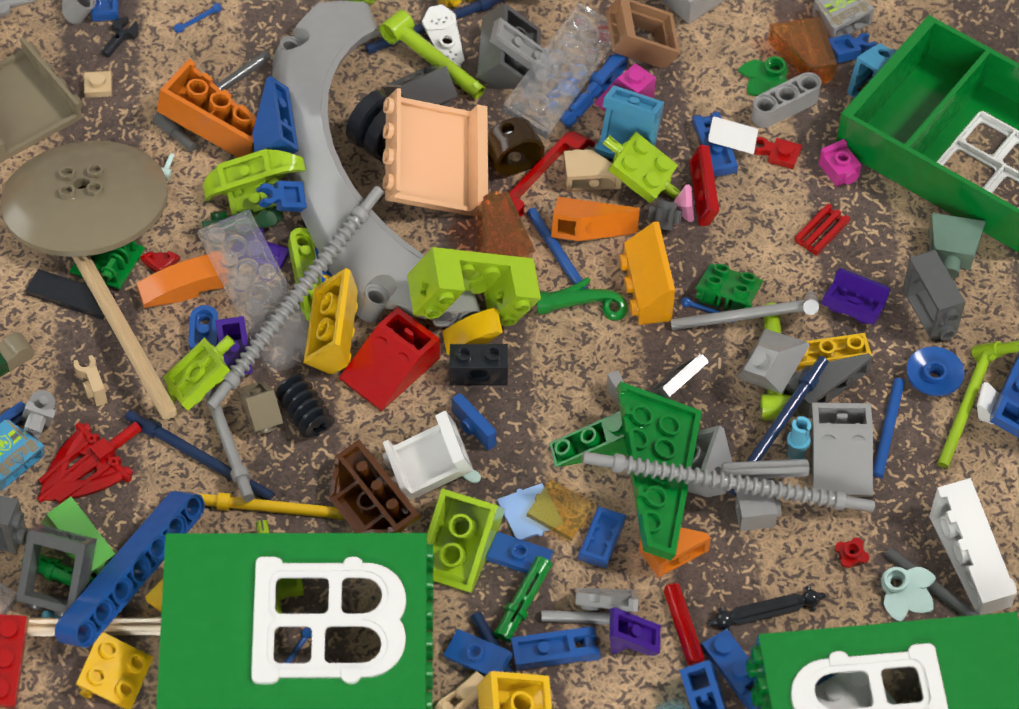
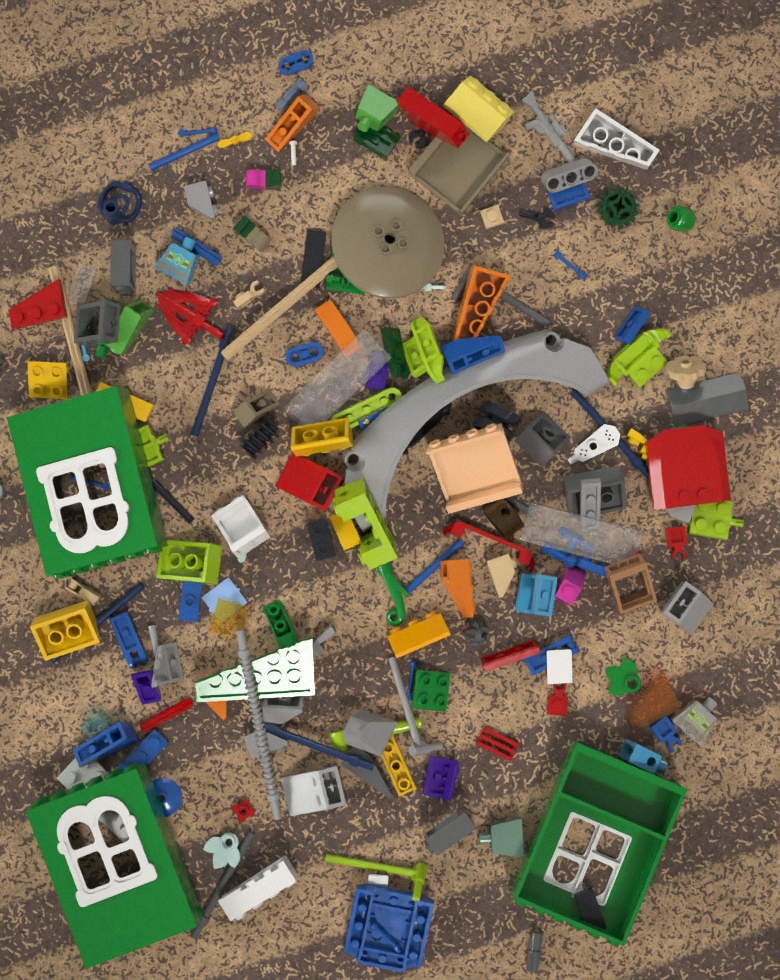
camera: 75 degrees right, 30 degrees up
(38, 413) = (205, 273): light grey hips -> none
(127, 570) = (113, 367): blue beam -> none
(160, 260) = (355, 307): red tile -> none
(198, 372) = (264, 362): lime plate -> none
(224, 502) = (182, 408): yellow bar -> none
(236, 329) = (292, 379): dark purple slope -> none
(239, 472) = (198, 412): light grey bar -> none
(286, 195) = (412, 377): blue plate -> none
(358, 215) = (400, 432): light grey hose -> none
(367, 494) = (199, 500): reddish brown wedge -> none
(401, 27) = (590, 410): lime piece -> none
(473, 422) = (277, 547): blue plate -> none
(477, 653) = (111, 594): blue plate -> none
(501, 228) = (425, 528): clear orange slope -> none
(506, 628) = (150, 610): green pin -> none
(602, 537) = (214, 650): blue plate -> none
(642, 167) = (509, 611): lime plate -> none
(679, 376) = (336, 671): tile -> none
(685, 203) = (491, 646): bright pink slope -> none
(767, 468) = (279, 745): light grey axle -> none
(767, 608) = (189, 764): black wheel -> none
(786, 100) = (610, 702): light grey beam -> none
(799, 438) = (310, 766): medium azure pin -> none
(839, 163) = (559, 740): dark pink brick -> none
(888, 427) = (346, 817): blue bar -> none
(936, 361) = (392, 851): blue dish -> none

